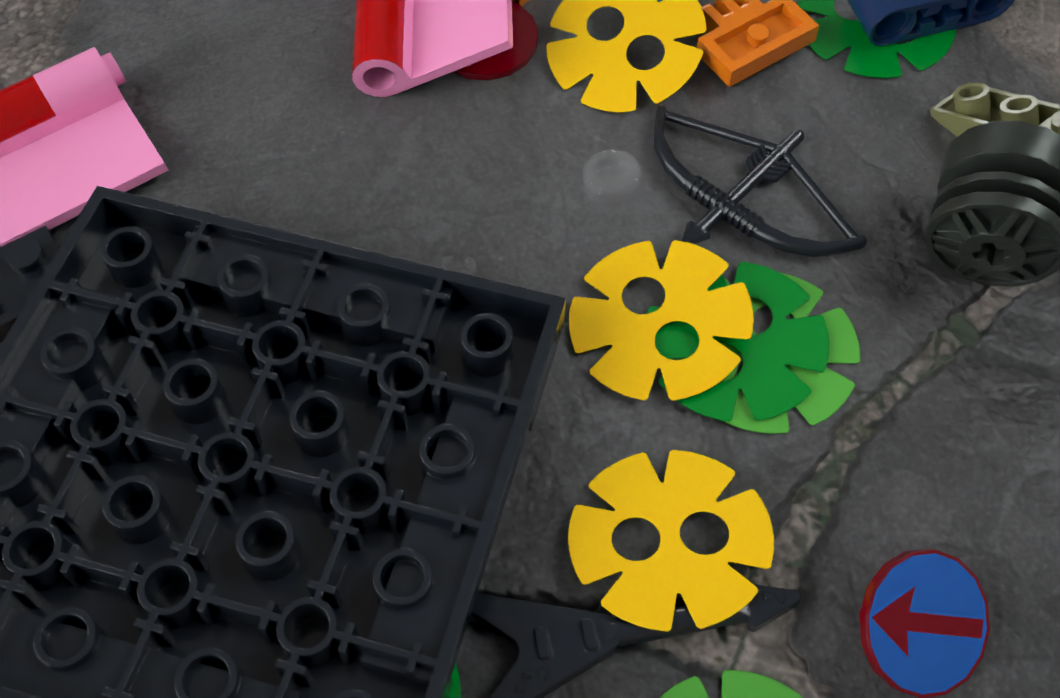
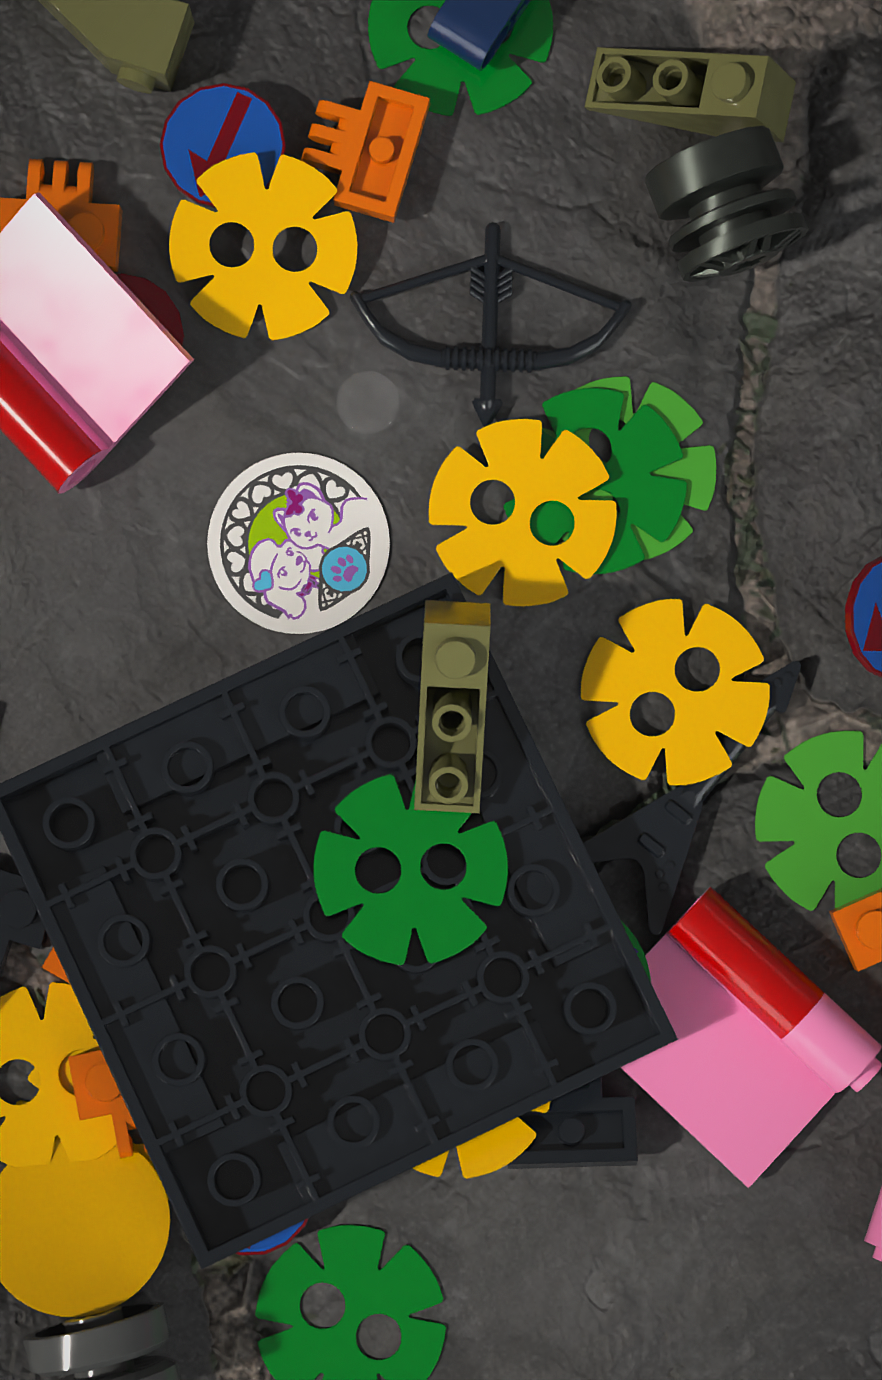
camera: 40 degrees left, 25 degrees up
(306, 528) = (387, 918): none -> green piece
(470, 372) = (452, 706): none -> olive slope
(482, 222) = (298, 543): none -> sticker

